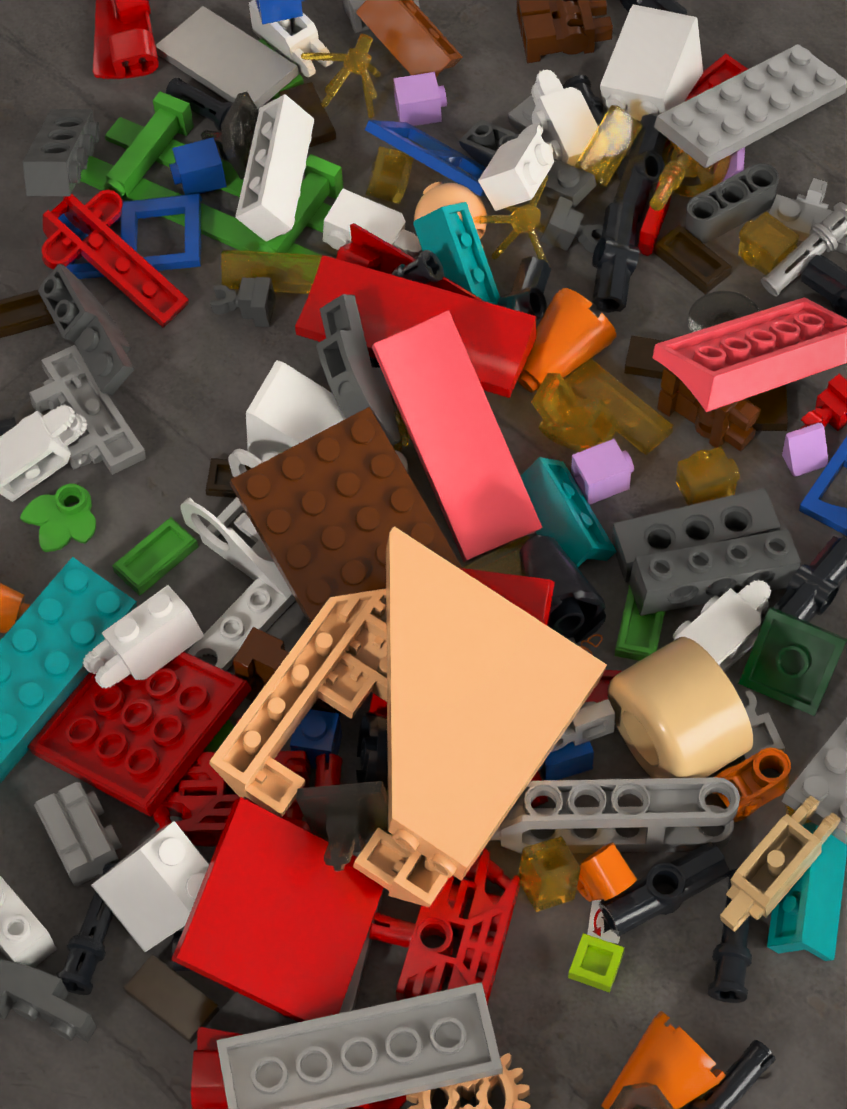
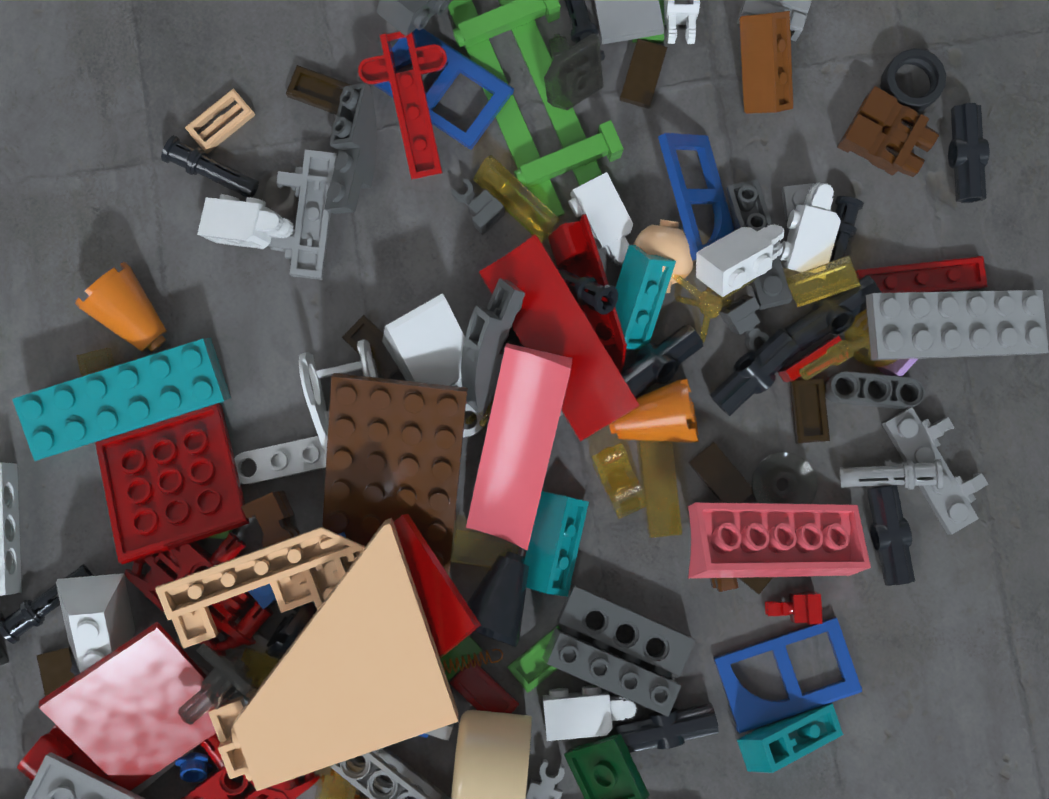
camera: 30 degrees right, 25 degrees up
(59, 522) = (231, 284): bright green plate -> none
(78, 833) = (80, 531): light grey brick -> none
(144, 640) = (207, 436): white hinge -> none
(155, 556) = (271, 360): bright green tile -> none
(198, 167) = (526, 66): blue brick -> none
(275, 168) = (571, 119): white brick -> none
(355, 61) = (700, 66): clear yellow plant -> none
(389, 175) = (652, 180): clear yellow brick -> none
(389, 972) = (194, 767): none -> blue plate
(419, 99) = (729, 125): lavender brick -> none
(602, 471) = (606, 533): lavender brick -> none
(652, 62) = (912, 236): white slope -> none
(707, 476) = (670, 593): clear yellow brick -> none
(766, 242) = (867, 443): clear yellow brick -> none
(805, 449) = (752, 624): lavender slope -> none

